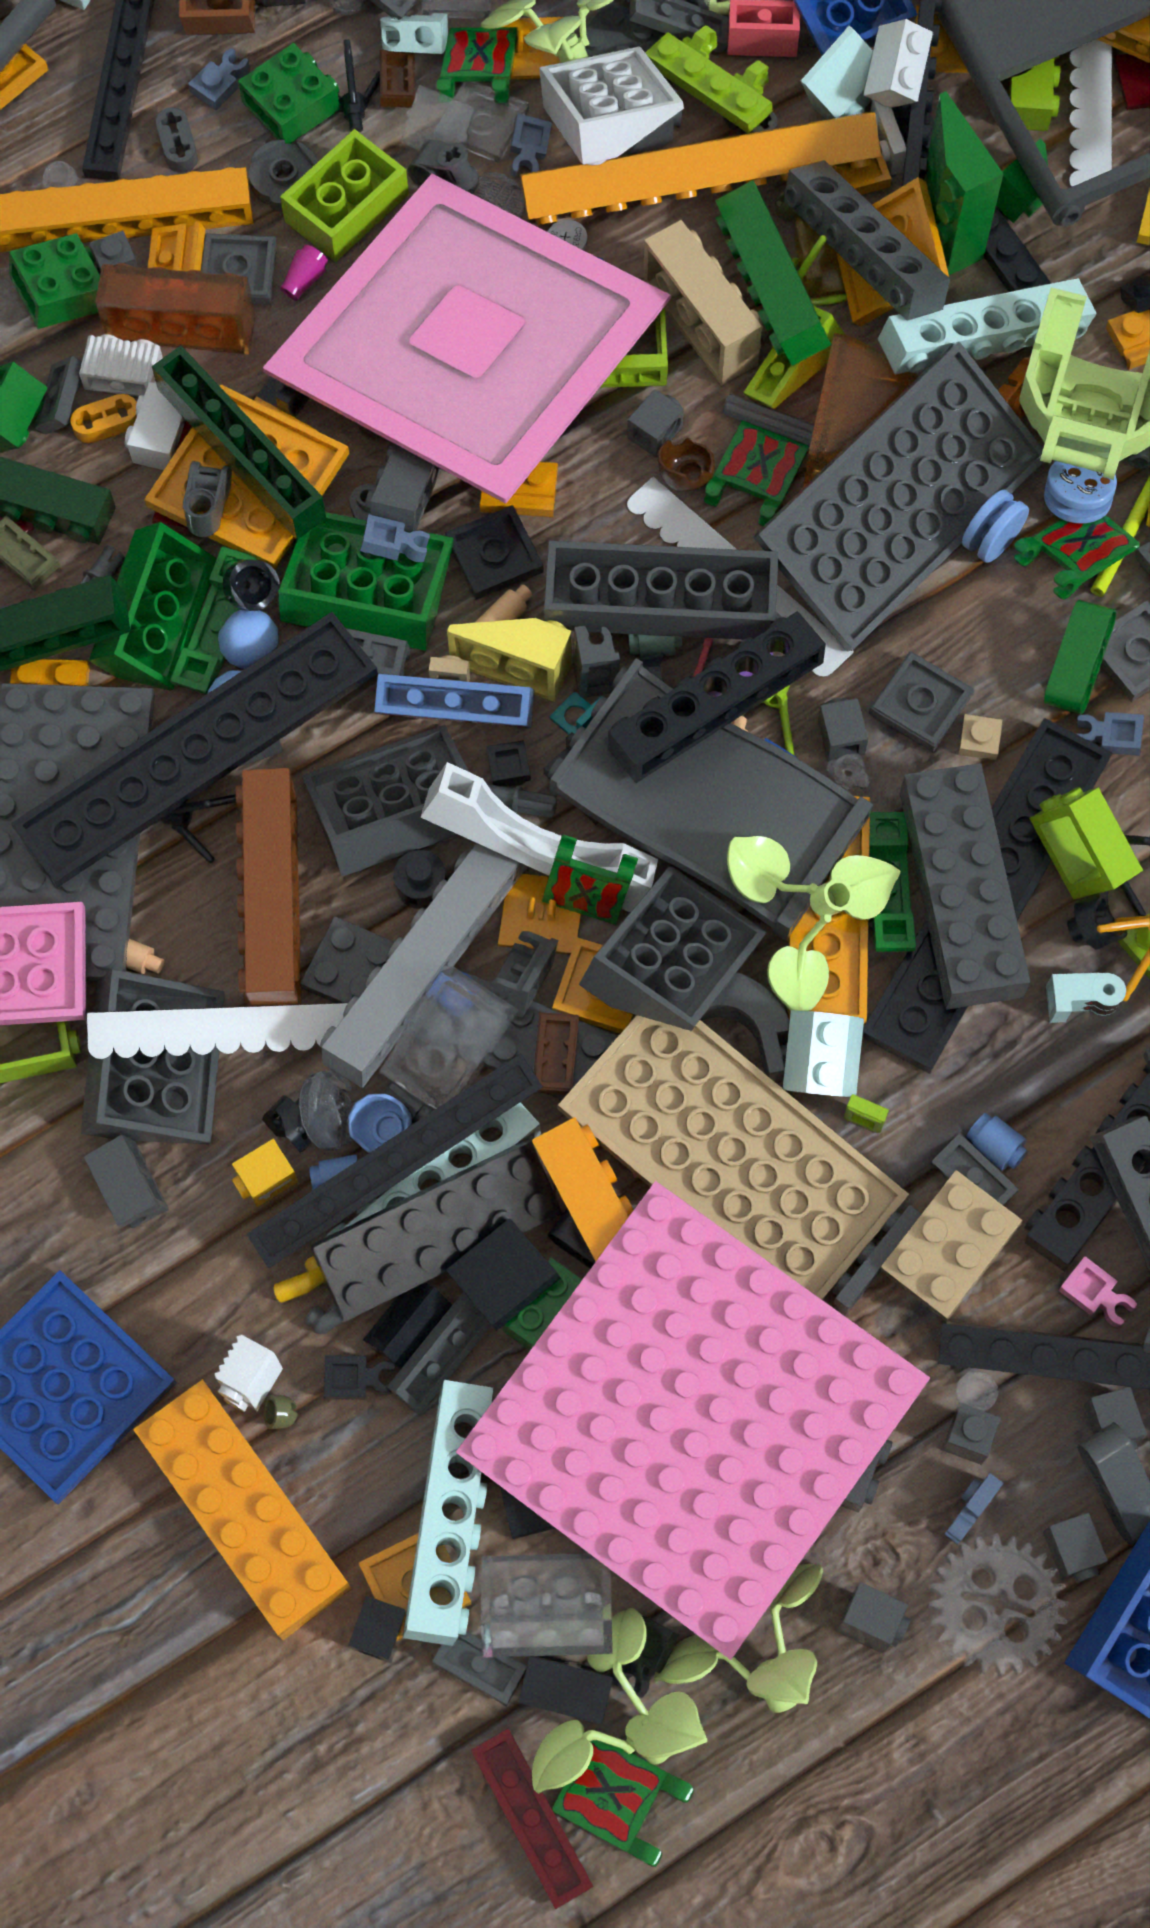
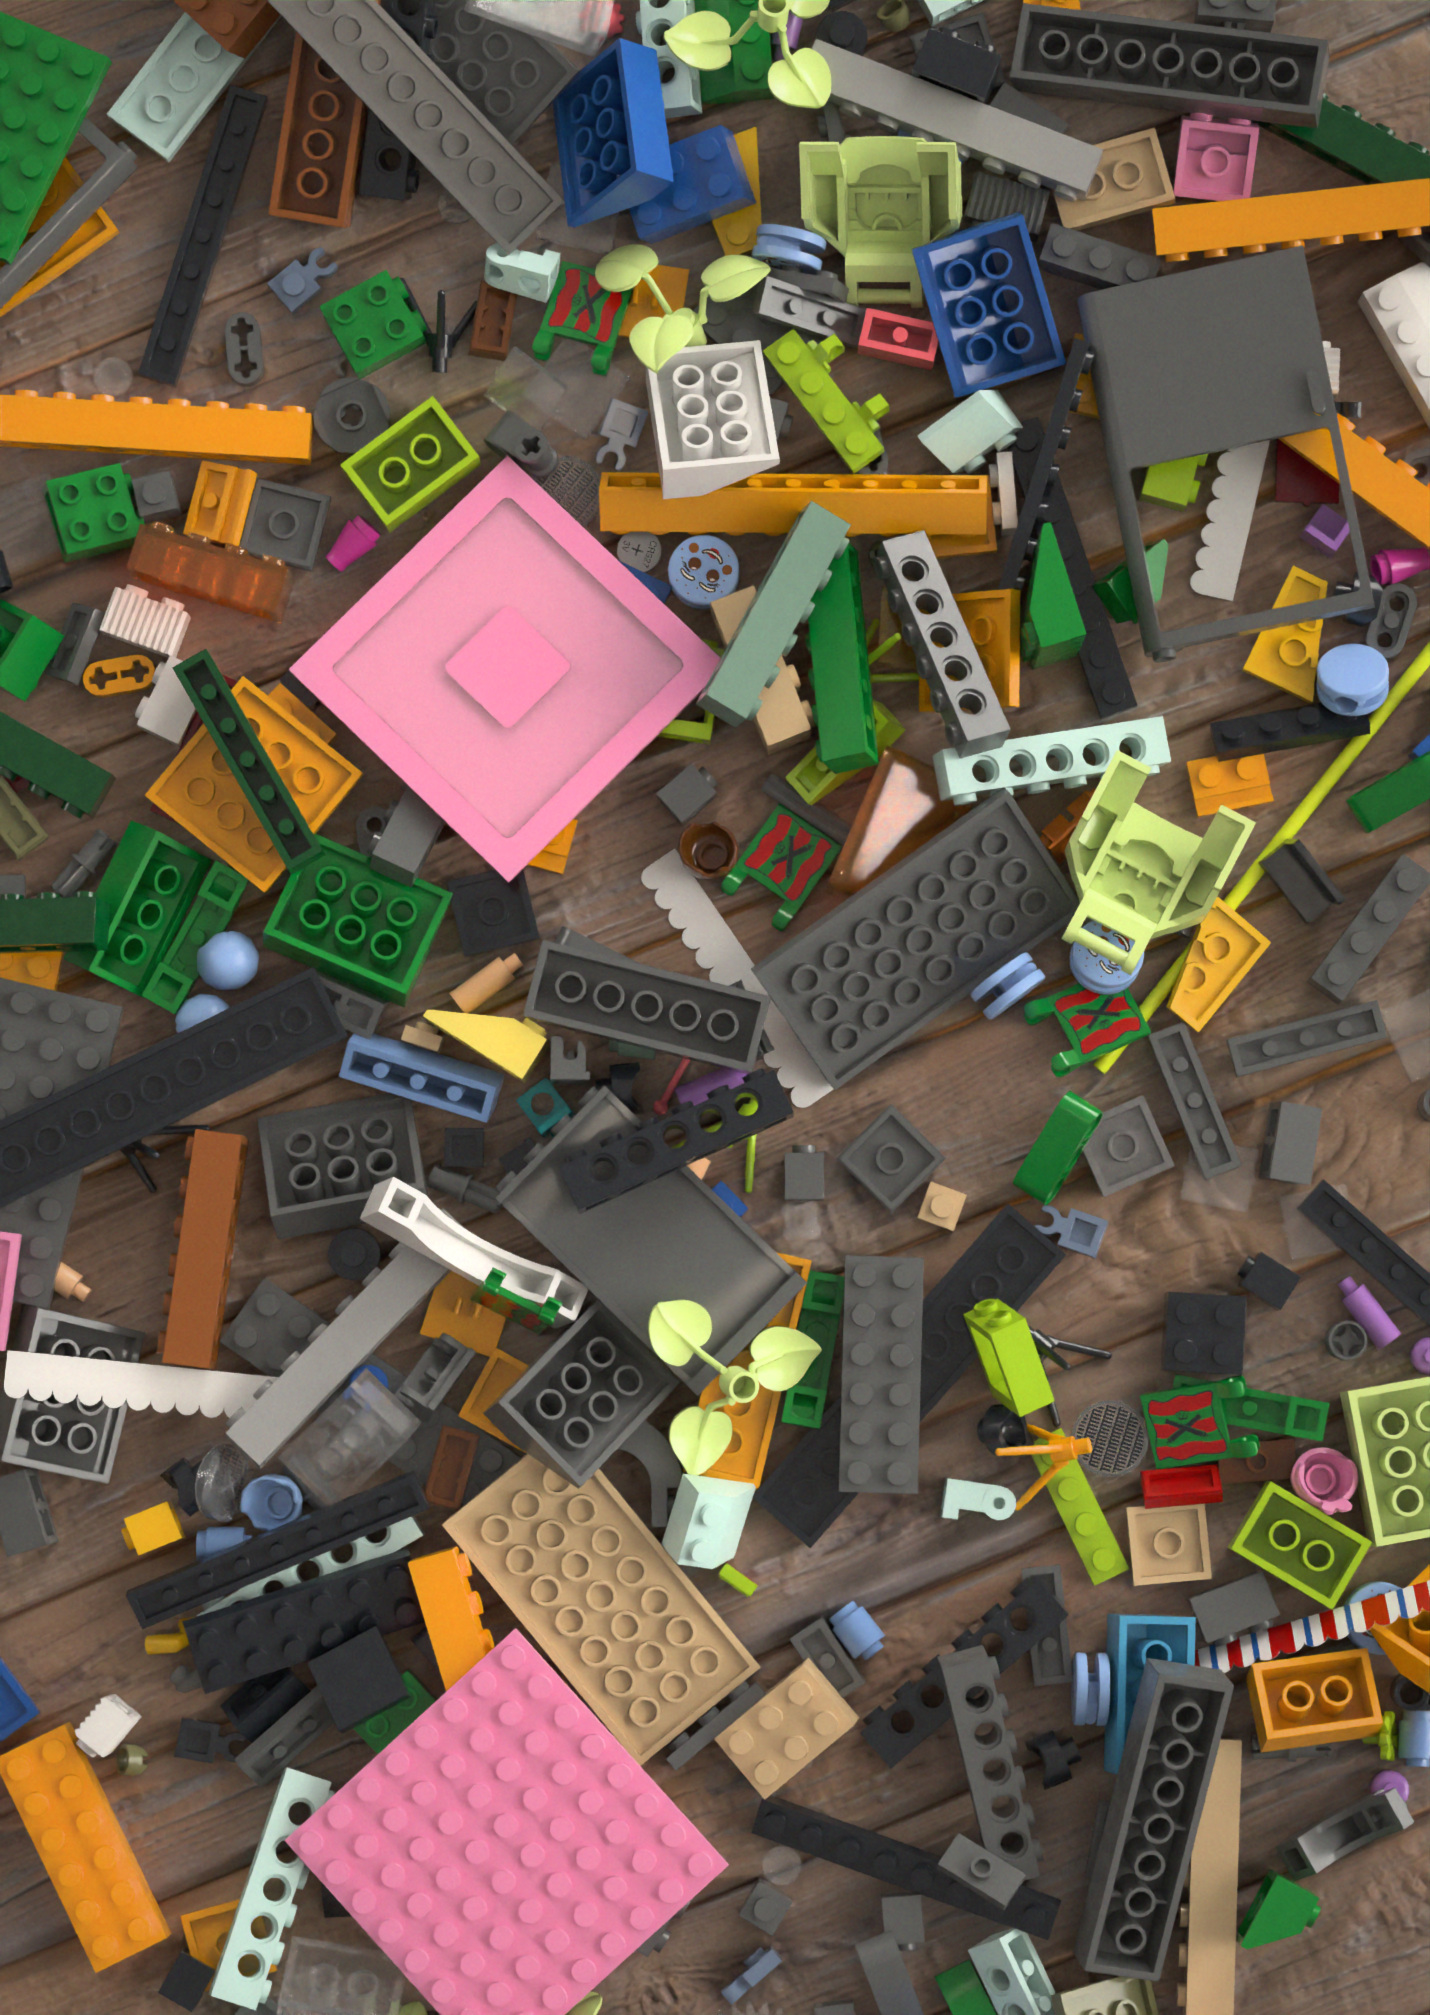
camera: 15 degrees right, 15 degrees up
(206, 491) = (207, 808): dark grey piece -> none
(250, 584) = (236, 919): black piece -> none
(388, 539) = (384, 891): sand blue plate -> none
(623, 236) = (703, 571): none -> light blue head
(705, 234) = (774, 614): none -> sand green brick
(898, 63) = (1024, 438): white brick -> none
(1091, 1288) = (912, 1790): bright pink plate -> none

